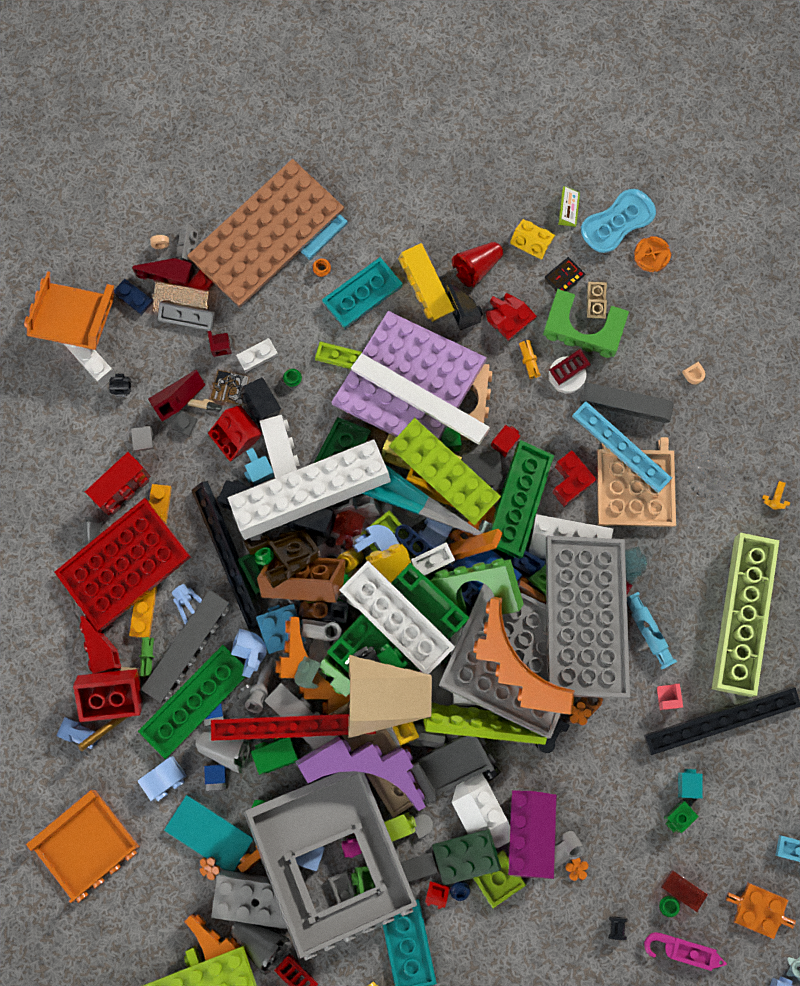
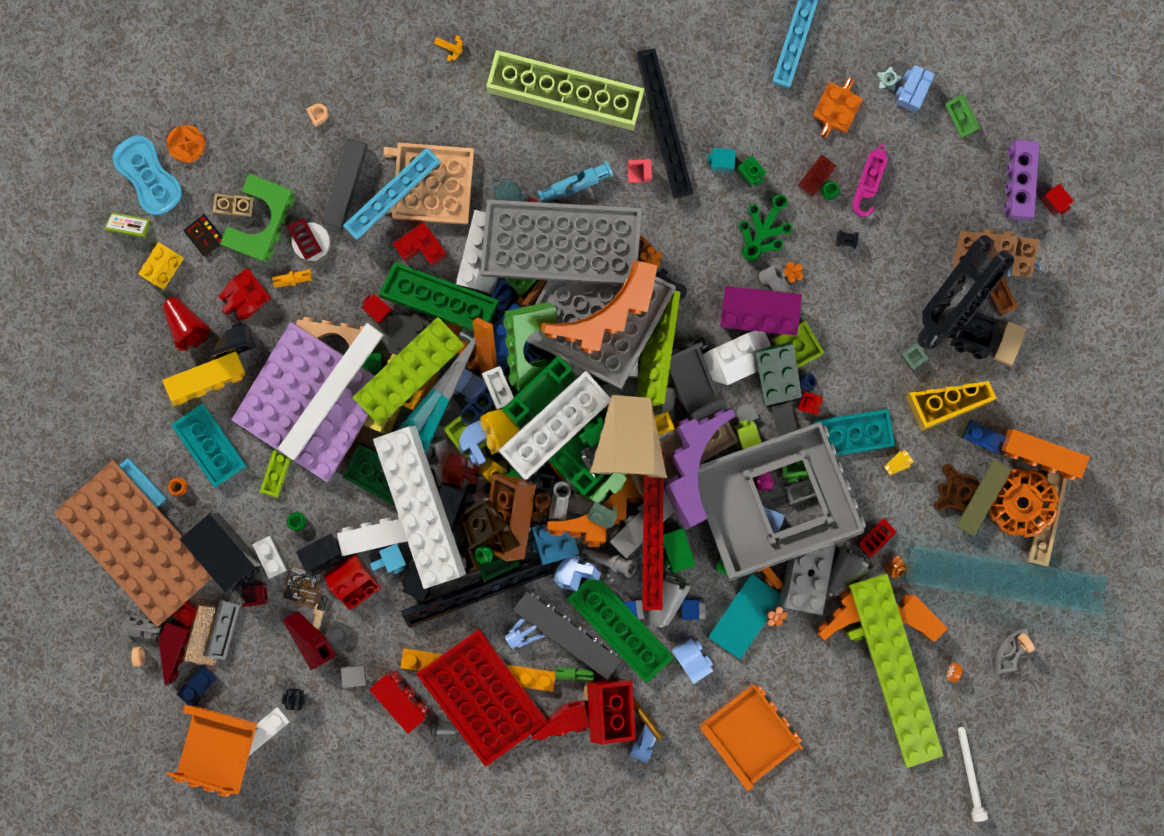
camera: 90 degrees left, 10 degrees up
(259, 309) = (222, 552): none -> black brick
(618, 833) = (763, 231): none -> green plant

